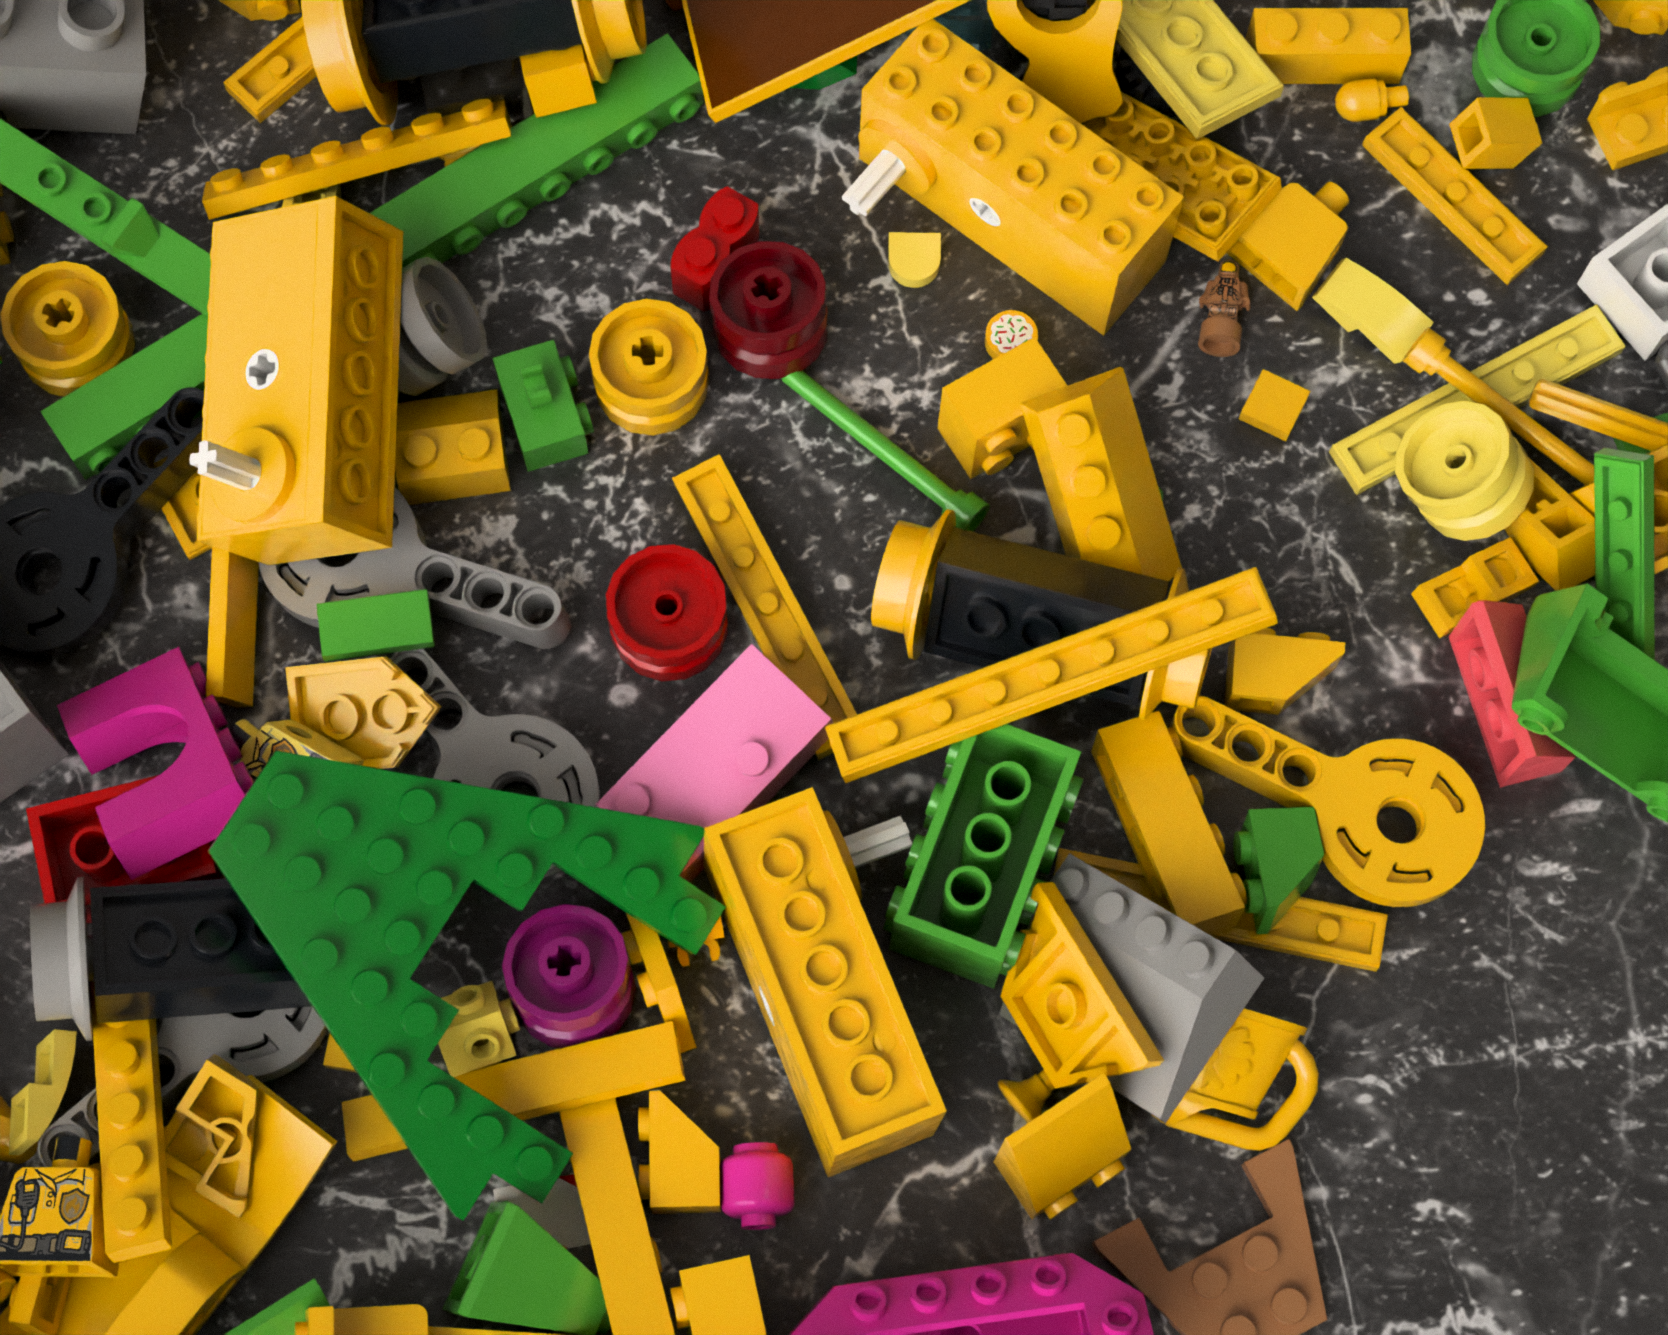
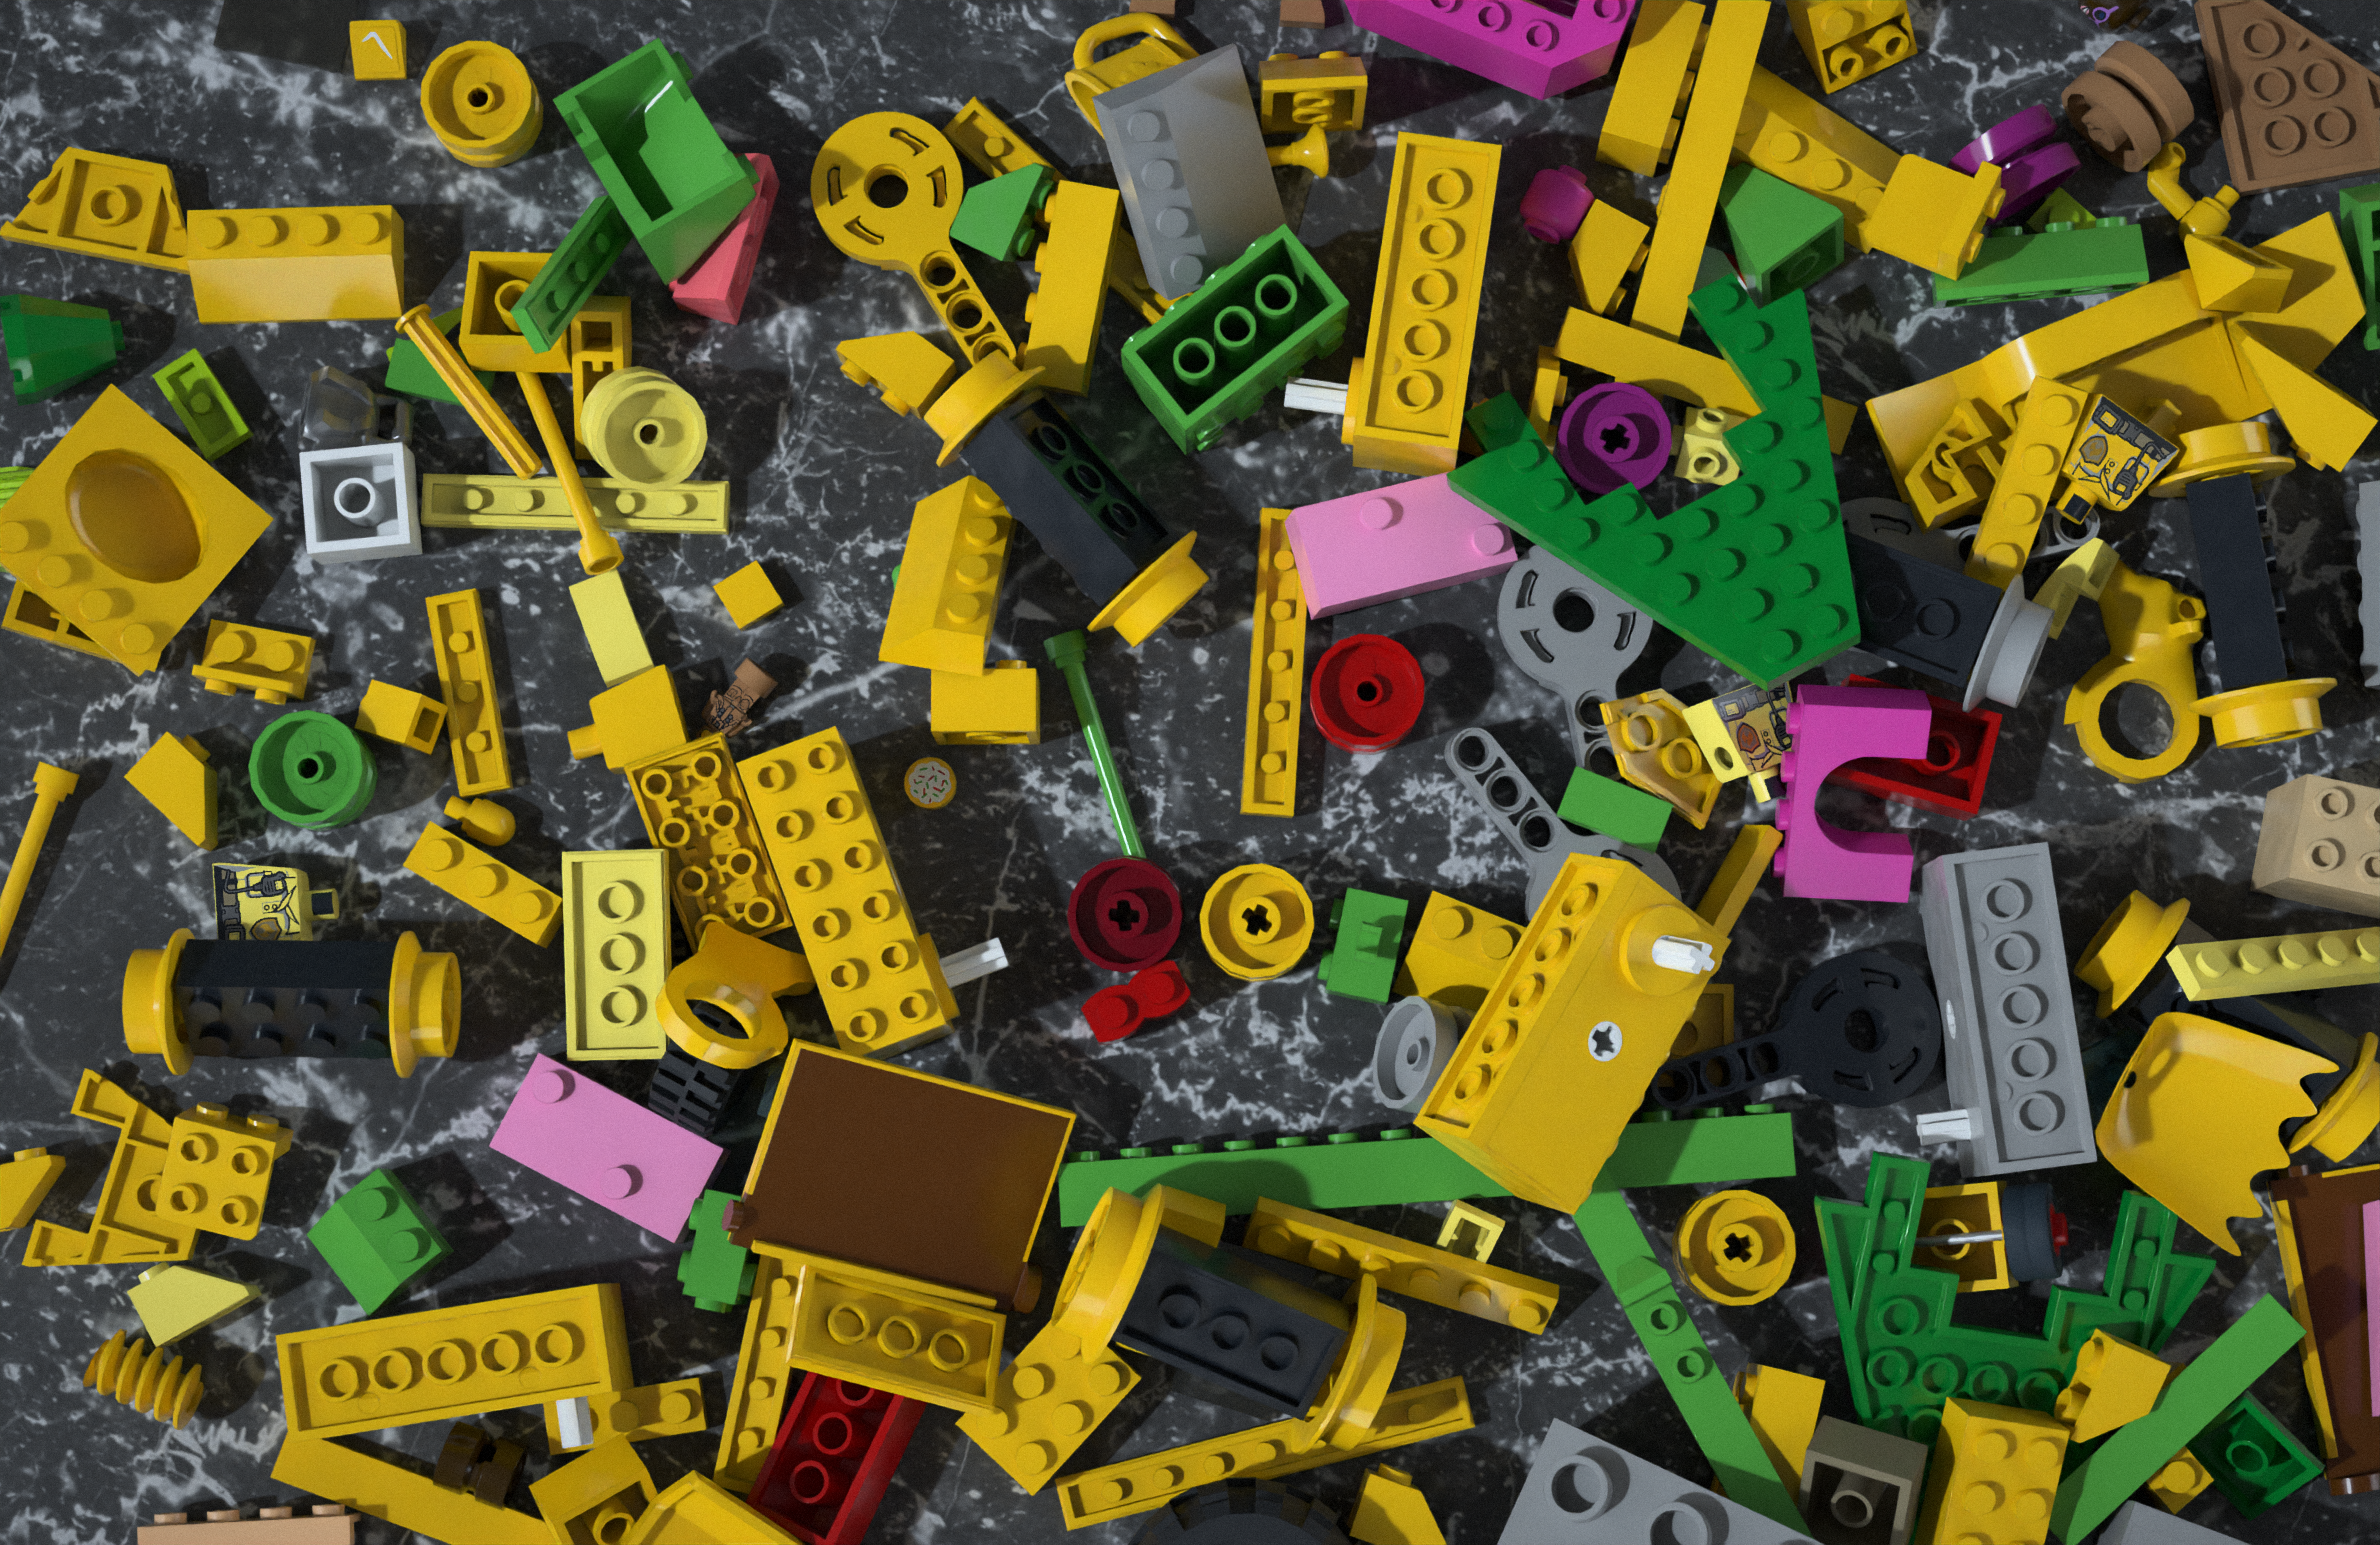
camera: 145 degrees left, 10 degrees up
(914, 257) = (967, 904): light yellow tile -> none
(1051, 674) = (1109, 414): yellow tile -> none
(1071, 1001) = (1245, 173): yellow wing -> none
(1488, 575) = (691, 348): yellow slope -> none

